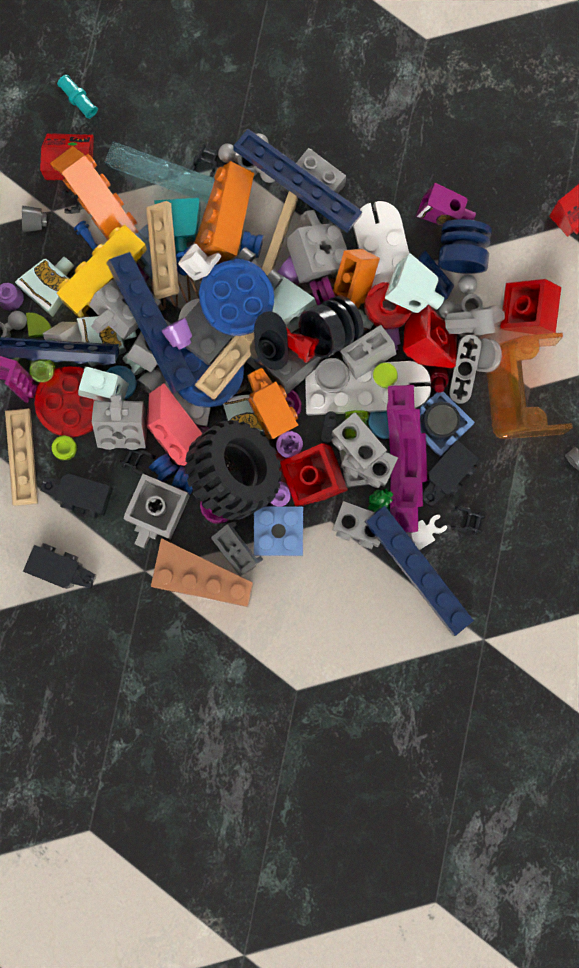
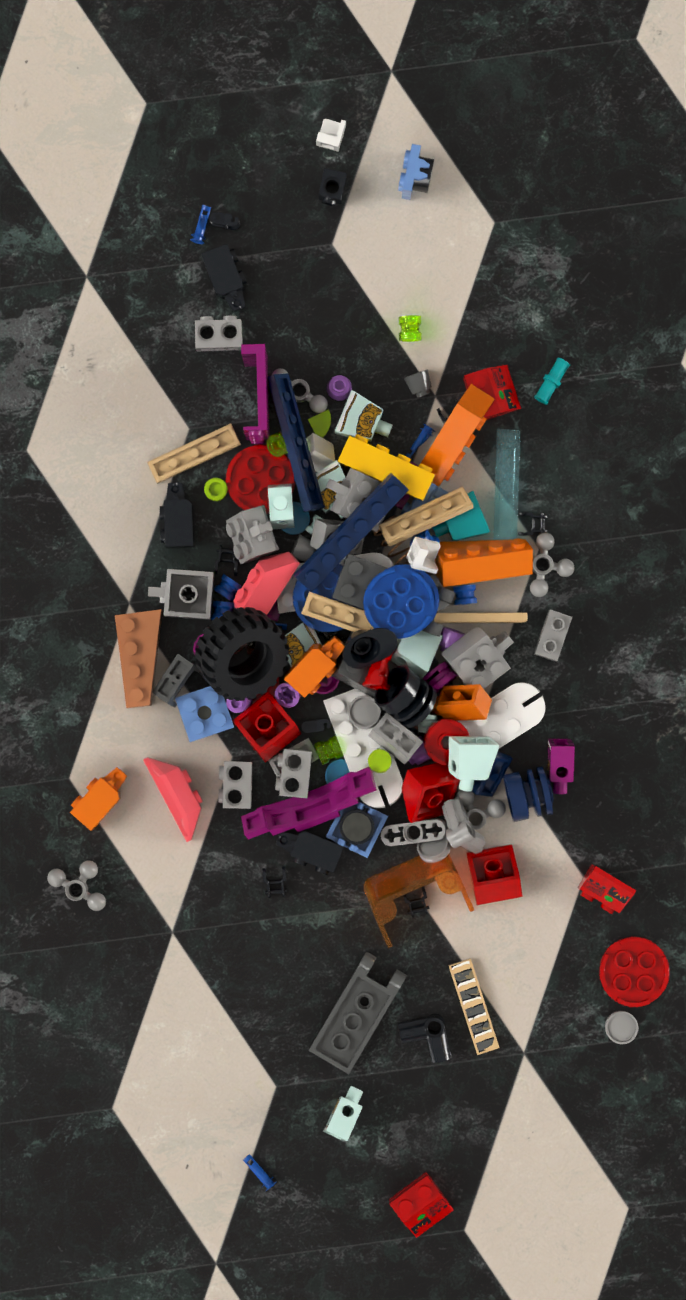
camera: 70 degrees right, 5 degrees up
(58, 569) = (103, 524): black hinge -> none
(178, 333) = (347, 561): medium lavender hat -> none
(297, 180) = (535, 617): dark blue plate -> none
(328, 665) = (99, 800): none -> orange hinge
(350, 586) = (177, 793): none -> coral wedge
(363, 438) = (311, 761): light grey brick -> none
(379, 499) = (265, 795): green plant -> none
(395, 702) = (88, 870): none -> light grey piece
(419, 570) = (212, 852): dark blue plate -> none
(424, 535) = (249, 846): white plate -> none
(438, 378) = (396, 811): dark red cylinder -> none
(541, 385) = (419, 909): none -> black piece

